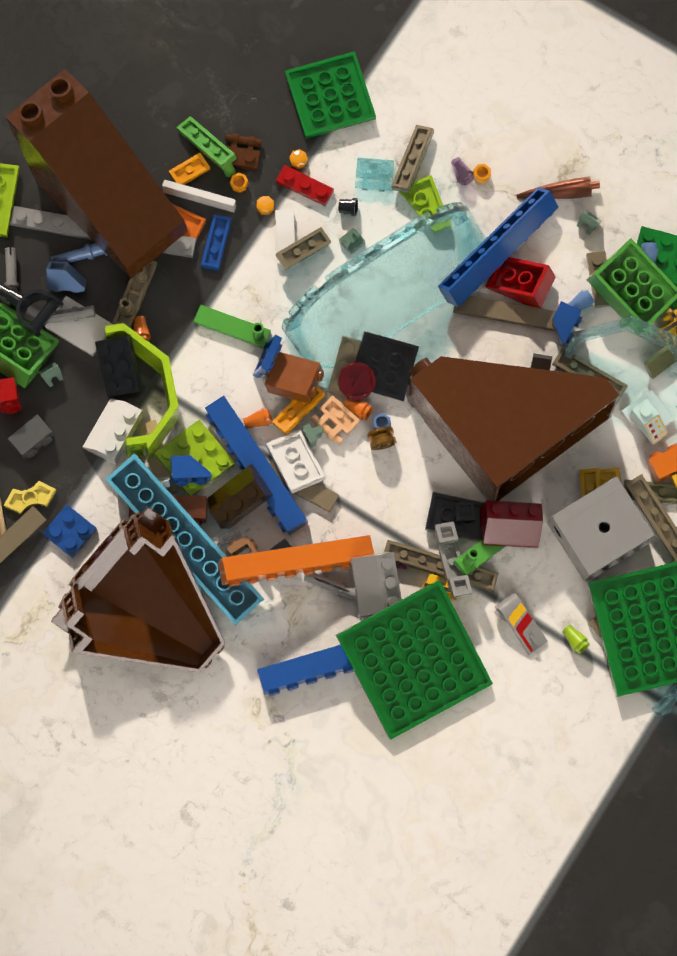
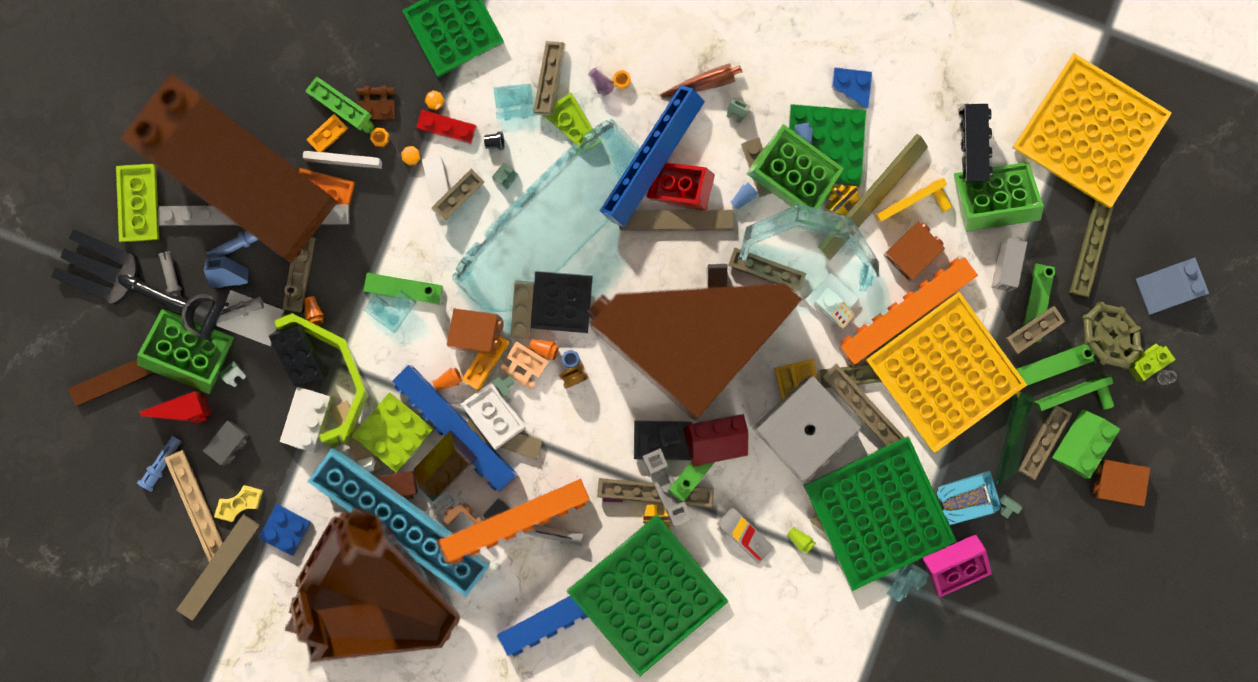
camera: 10 degrees left, 10 degrees up
(188, 470) = (387, 450): blue slope -> none
(216, 242) = (369, 204): blue tile -> none
(216, 348) = (390, 314): none -> clear light blue plate
(266, 360) = (443, 321): blue plate -> none
(356, 380) = (537, 323): dark red tile -> none
(375, 582) = (595, 526): light grey slope -> none
(564, 321) = (732, 221): blue slope -> none

